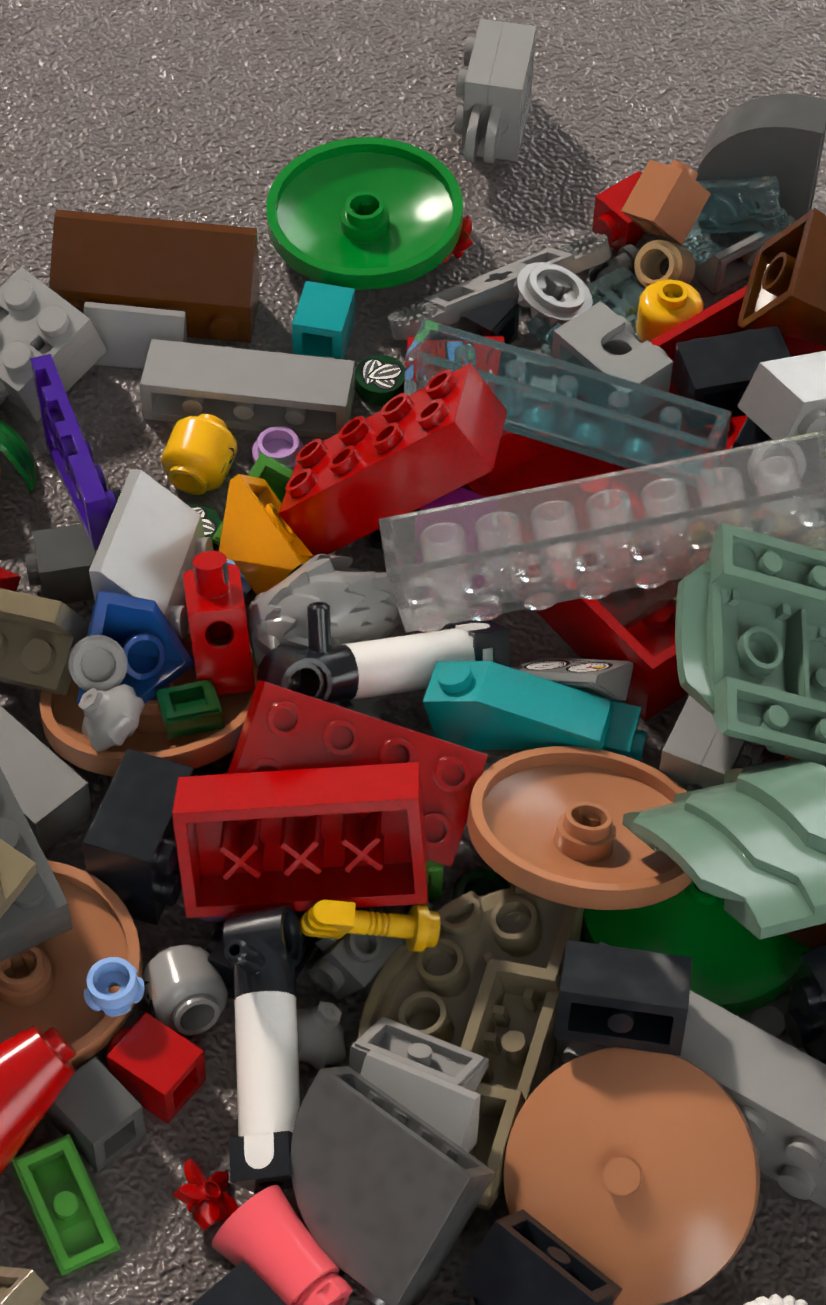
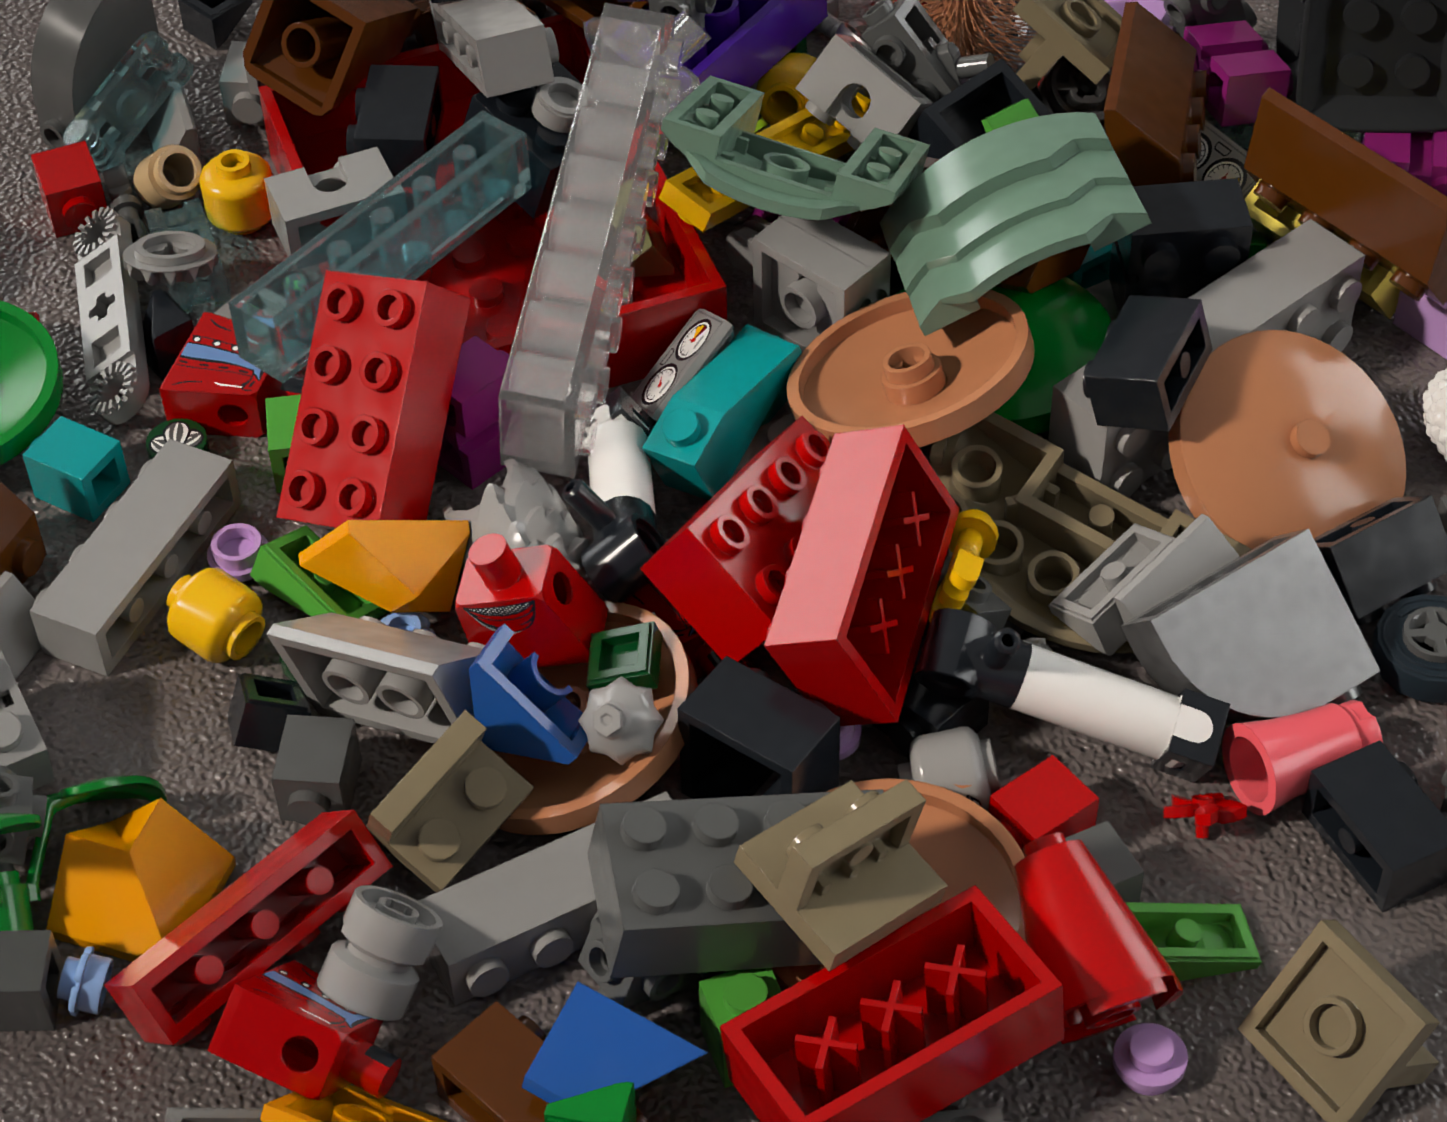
camera: 70 degrees left, 5 degrees down
(71, 453) = (183, 709): dark purple wing -> none
(97, 663) = (552, 708): light grey tile -> none
(110, 973) = (973, 786): light blue plate -> none
(666, 200) = (106, 132): nougat brick -> none

